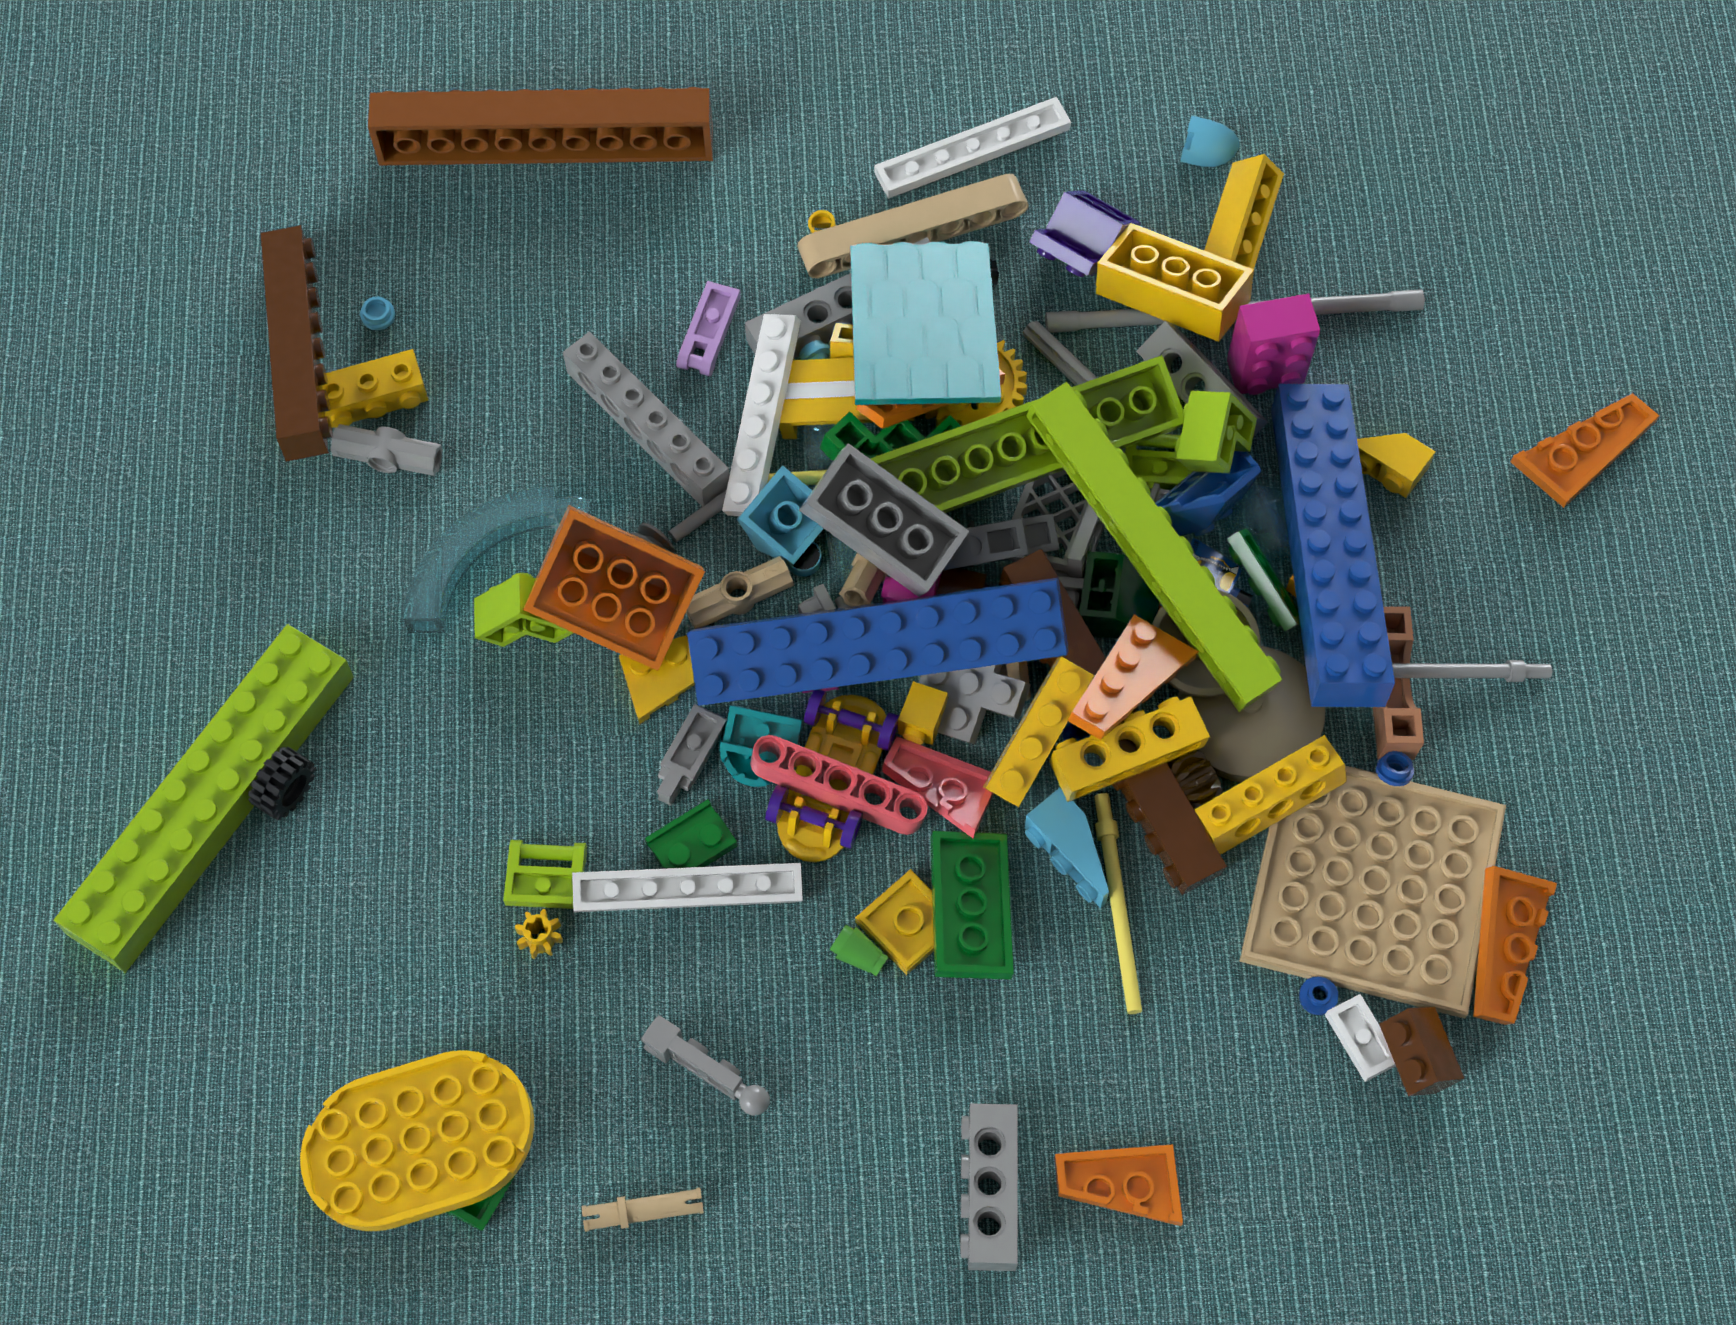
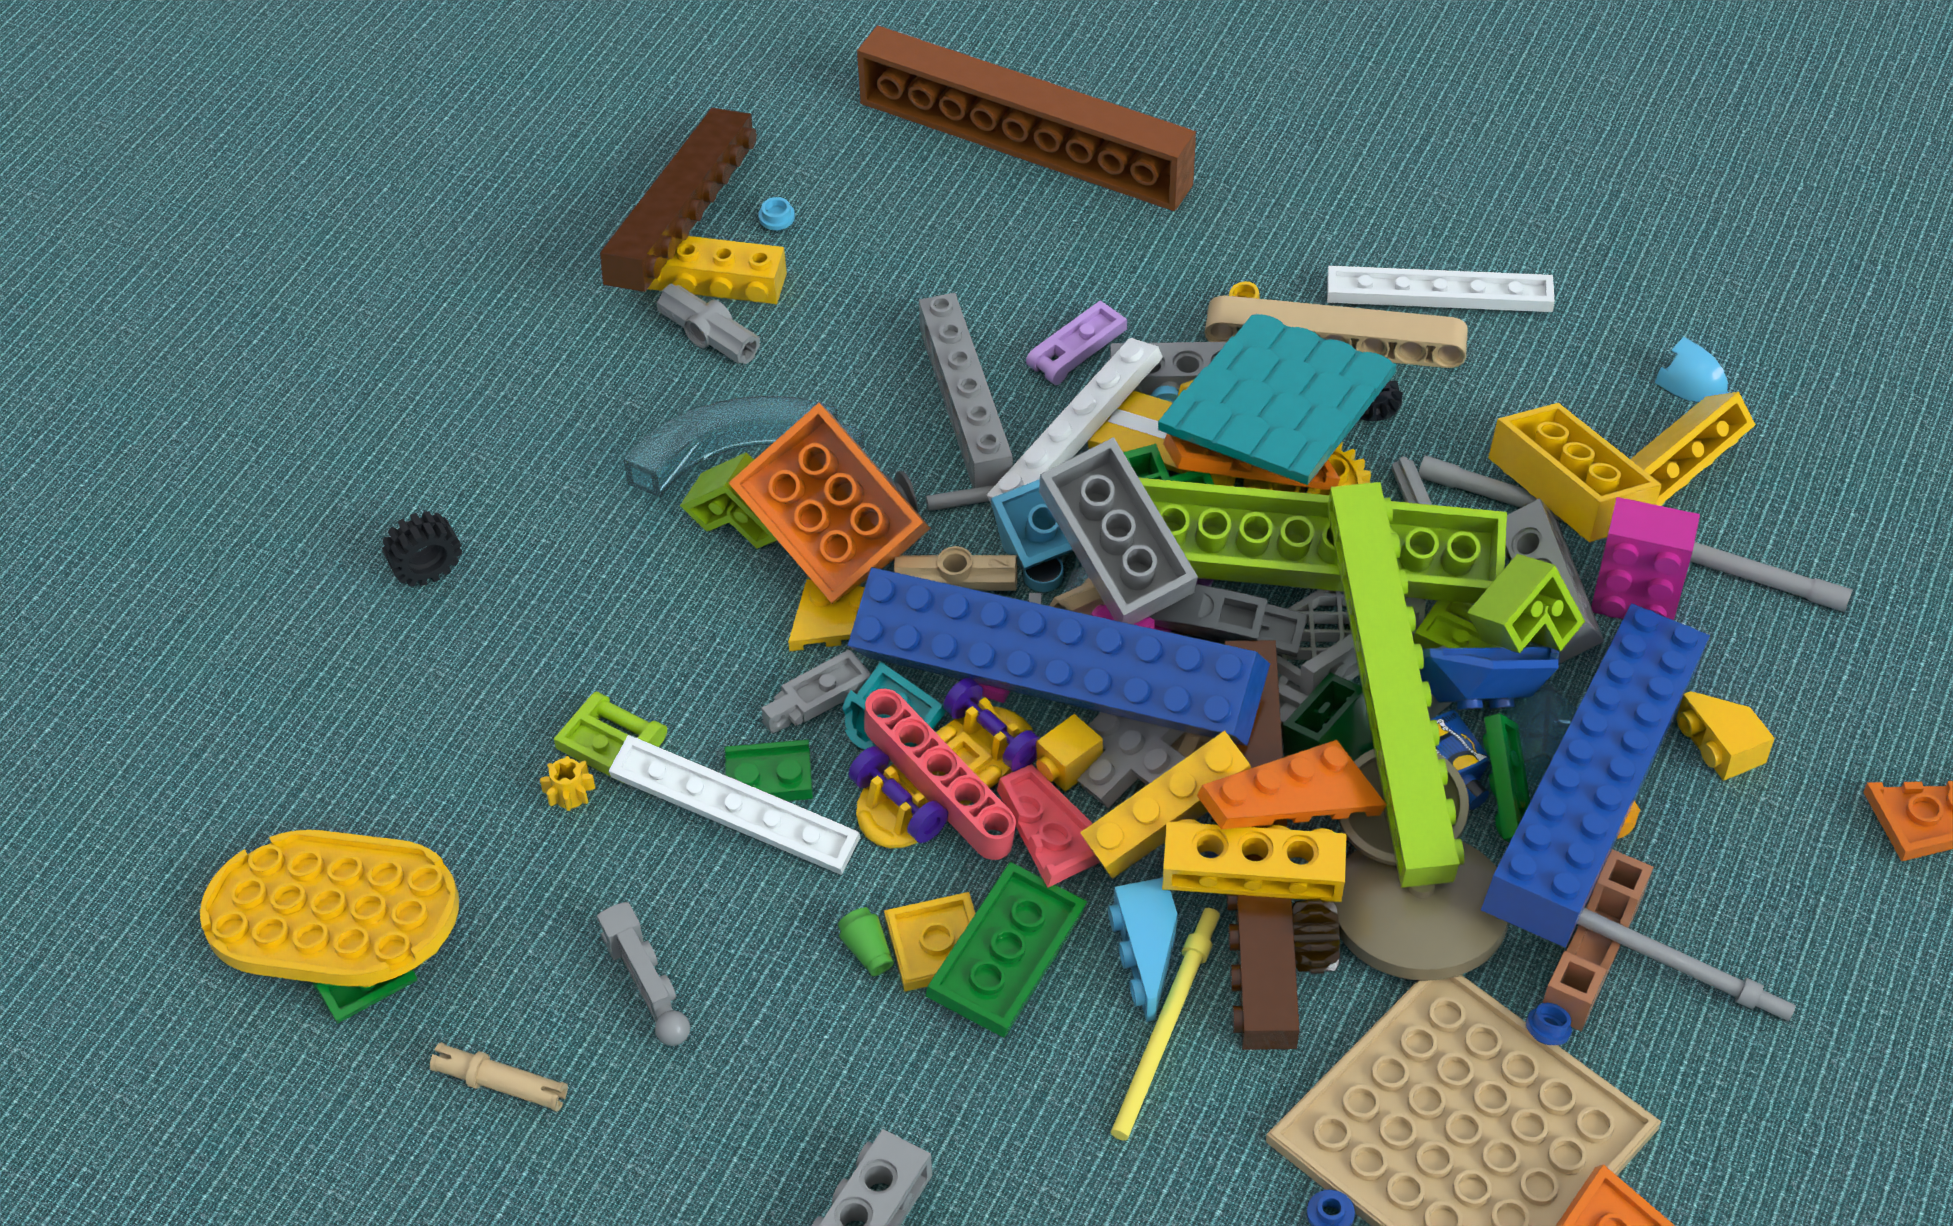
camera: 30 degrees right, 15 degrees down
(202, 799) = (342, 535): lime brick -> none
(1081, 232) = (1498, 389): bracket -> none
(1272, 794) = (1390, 985): yellow brick -> none

